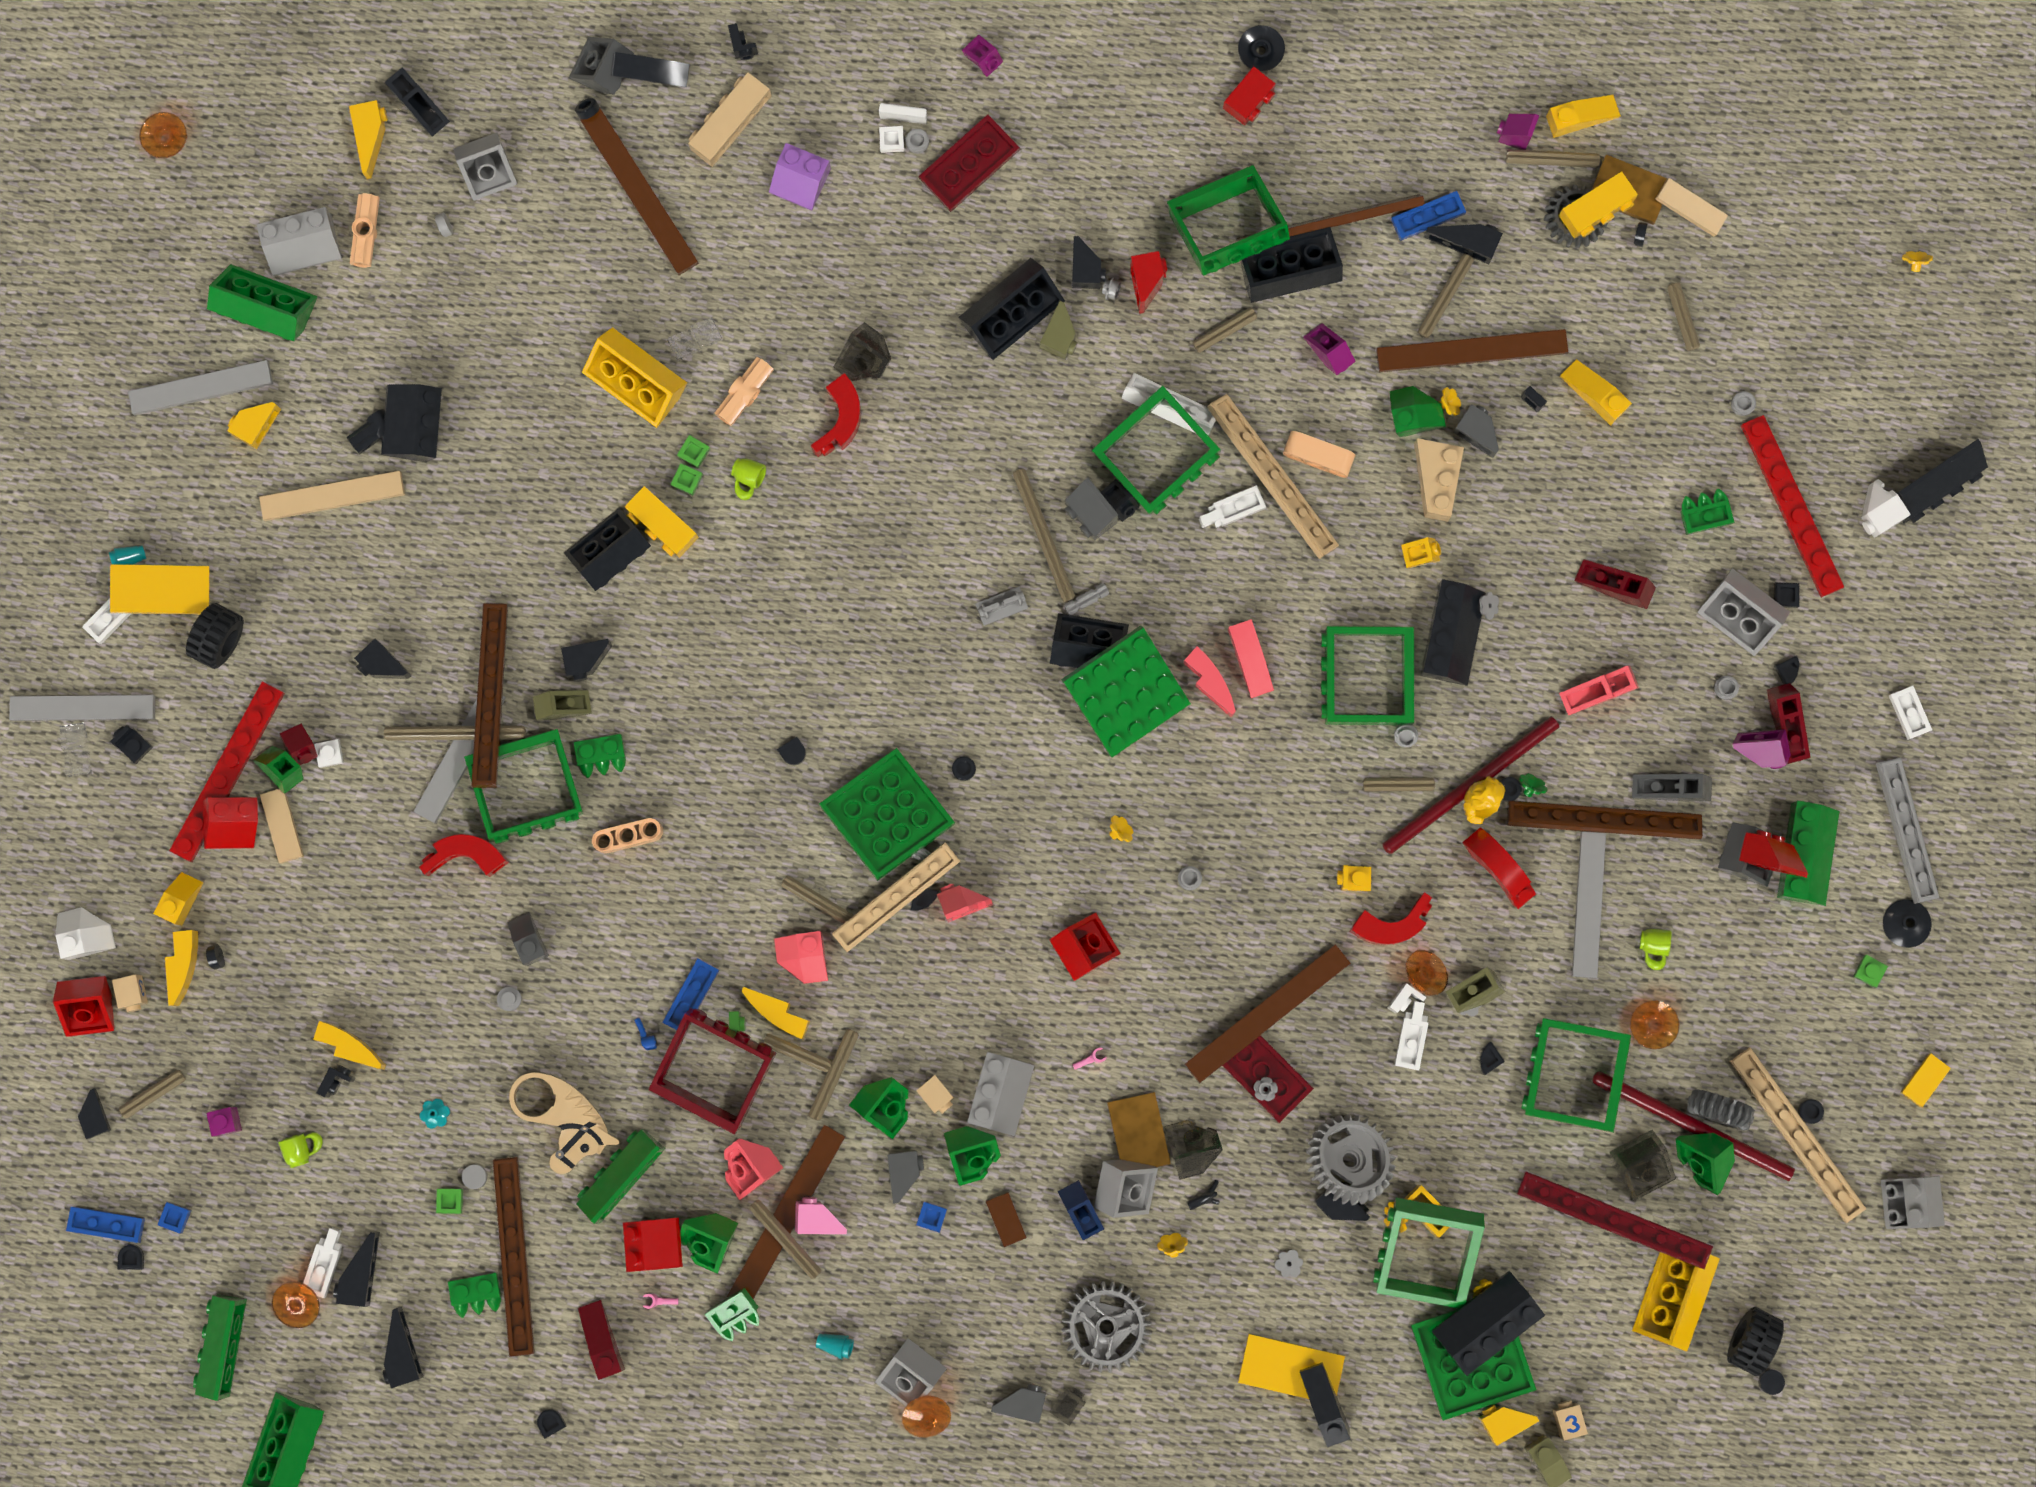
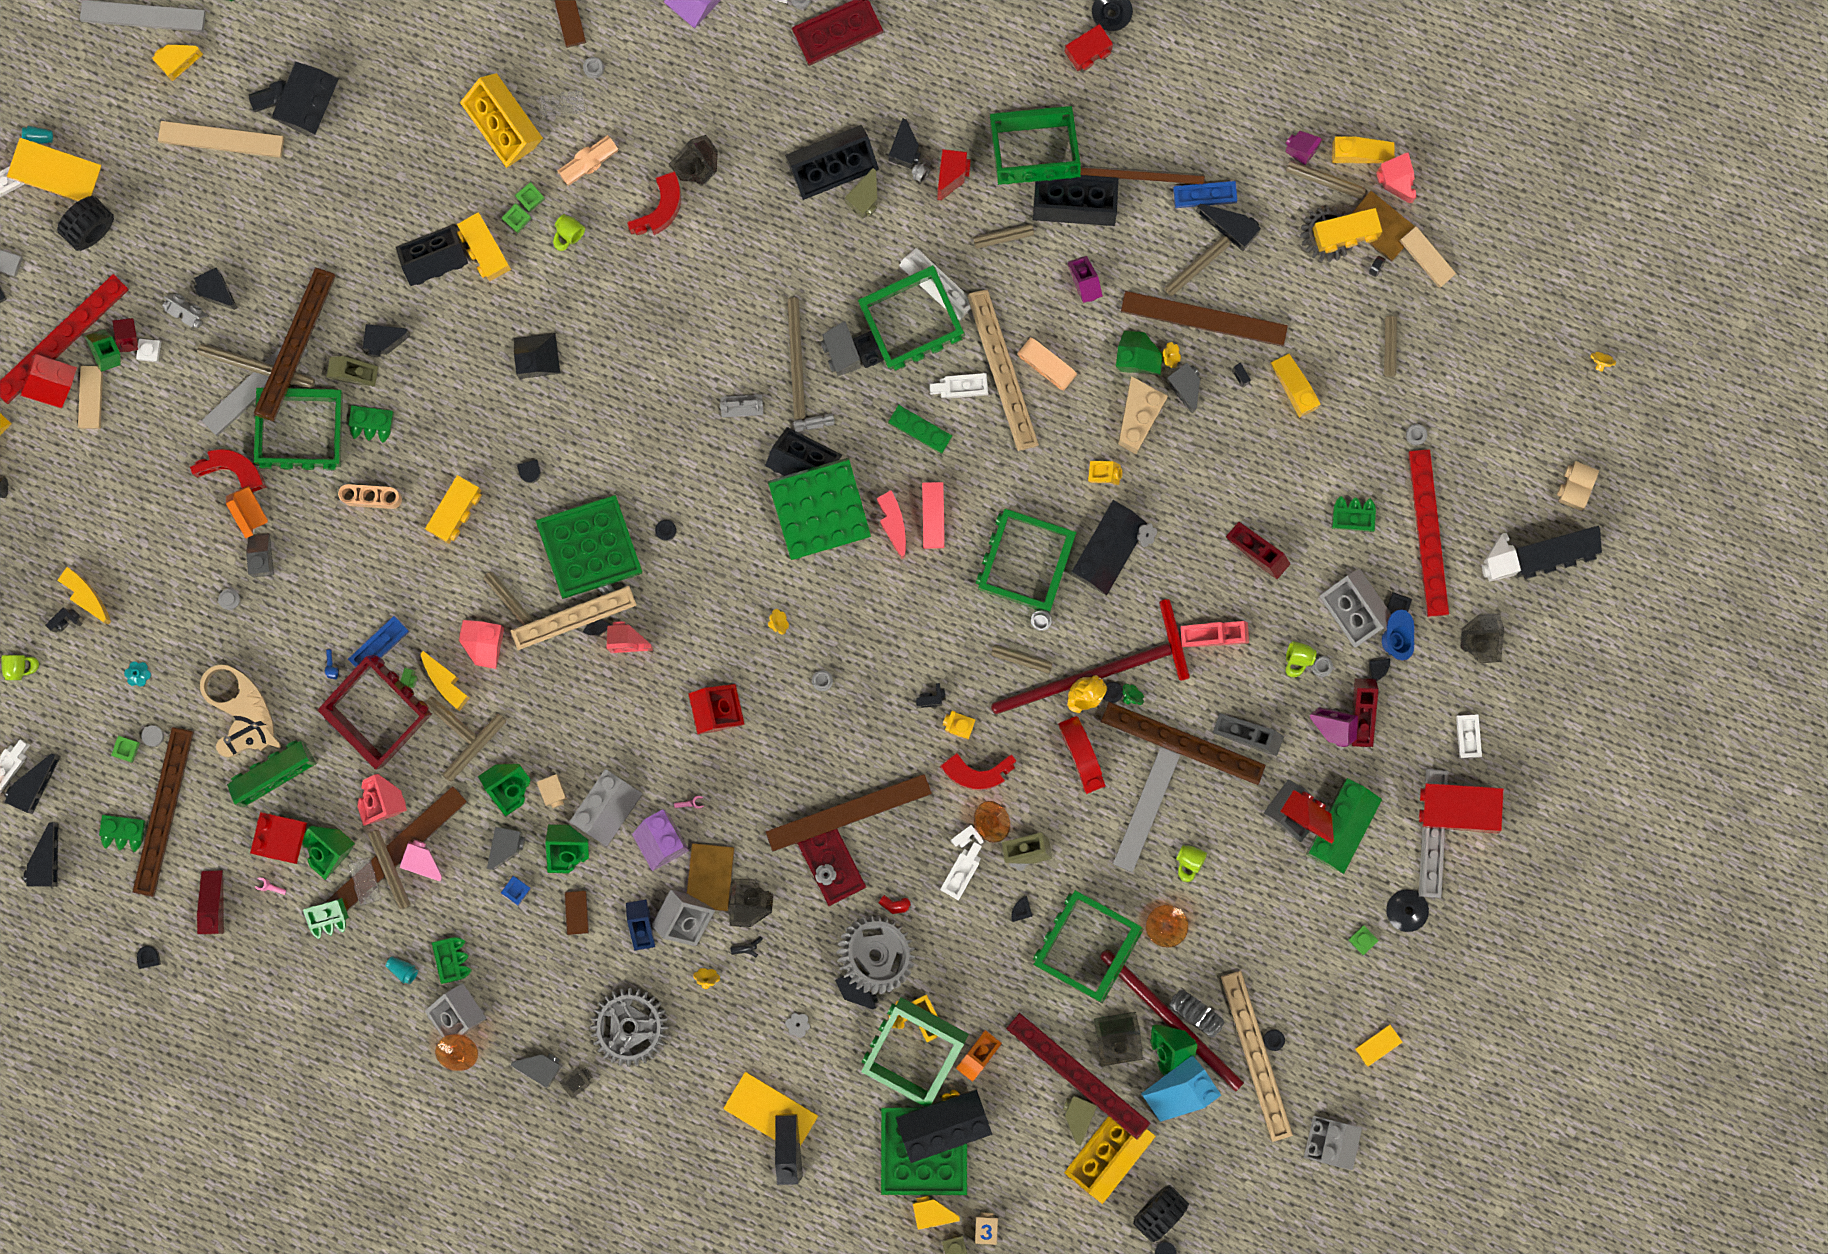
camera: 15 degrees right, 0 degrees up
(344, 693) = (192, 313): none -> light grey hinge
(496, 895) = (246, 510): none -> orange panel
(715, 288) = (593, 67): none -> light grey tile
(725, 821) = (454, 510): none -> yellow brick
(759, 622) = (536, 356): none -> black slope
(763, 1261) = (365, 881): none -> clear slope
(884, 1317) = (449, 960): none -> green plate
(1072, 1112) = (659, 840): none -> medium lavender slope
(1204, 569) = (920, 429): none -> green plate
(1312, 862) = (928, 700): none -> black bracket
(1352, 1100) = (895, 907): none -> red arm
(1498, 1233) = (978, 1055): none -> orange slope
(1557, 710) = (1174, 639): none -> red axle
(1629, 1265) = (1078, 1116): none -> olive slope
(1632, 131) = (1398, 177): none -> coral slope
(1699, 683) = (1300, 655): none -> lime piece
(1732, 1199) = (1181, 1091): none -> dark azure slope
(1800, 627) = (1399, 636): none -> blue piece
(1892, 600) = (1483, 638): none -> clear smoke slope
(1932, 793) = (1462, 808): none -> red slope
(1936, 403) = (1577, 485): none -> tan brick

